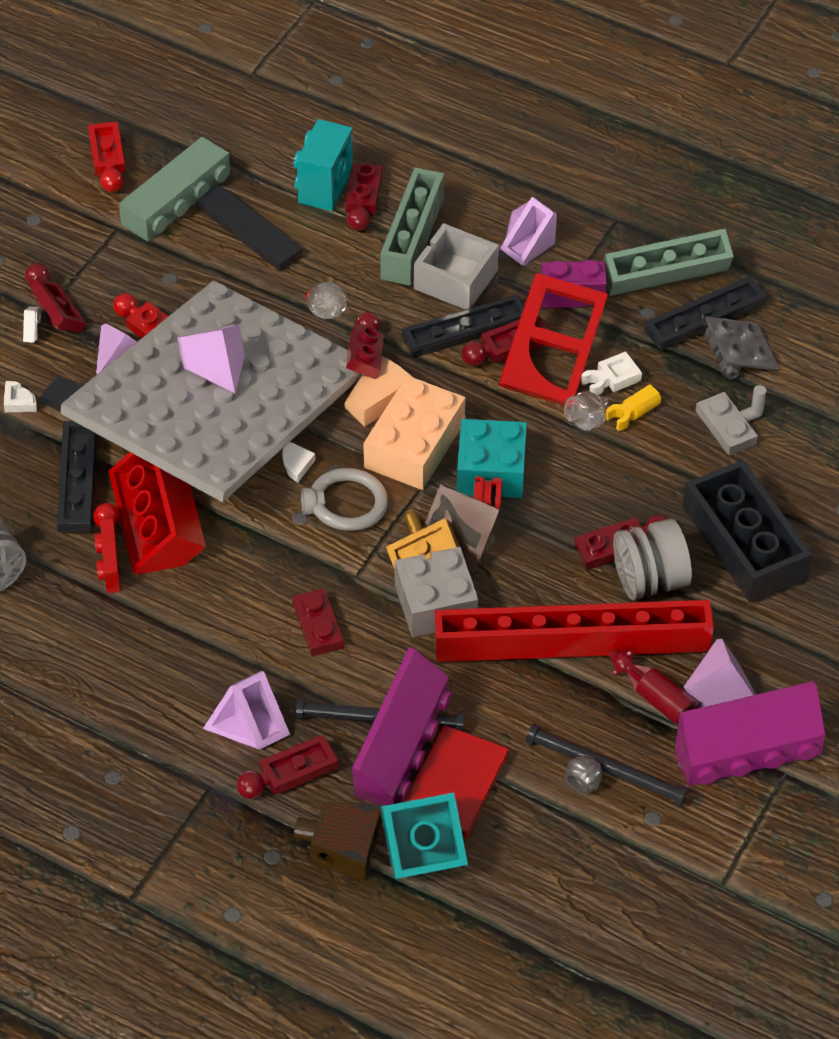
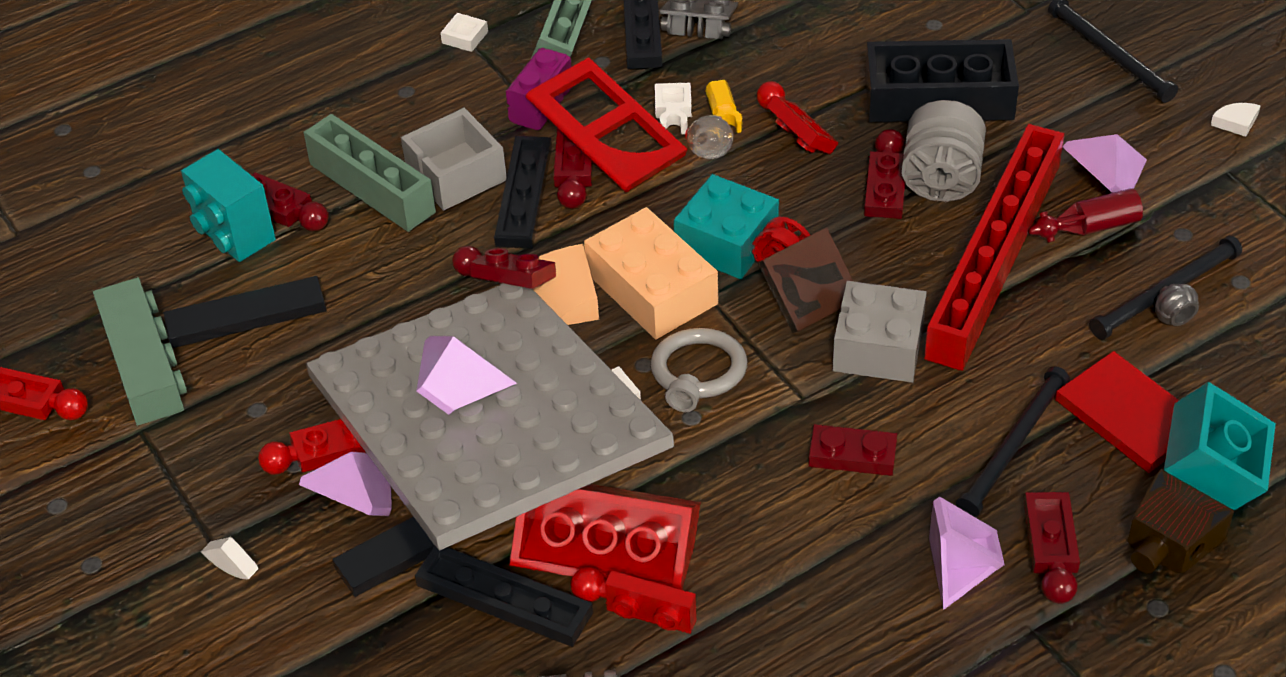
camera: 60 degrees left, 5 degrees down
(18, 398) = (334, 616): white tile -> none
(53, 299) = (204, 525): dark red plate -> none
(326, 300) = (409, 281): clear animal -> none
(401, 730) = (1068, 420): magenta slope -> none
(422, 540) = (814, 317): plate -> none
(530, 231) = (434, 90): lavender slope -> none
(619, 213) = (464, 32): none -> white tile
(645, 457) = (794, 119): none -> red plate
(730, 424) = (783, 54): light grey plate -> none
(750, 734) = (1196, 169): magenta slope -> none

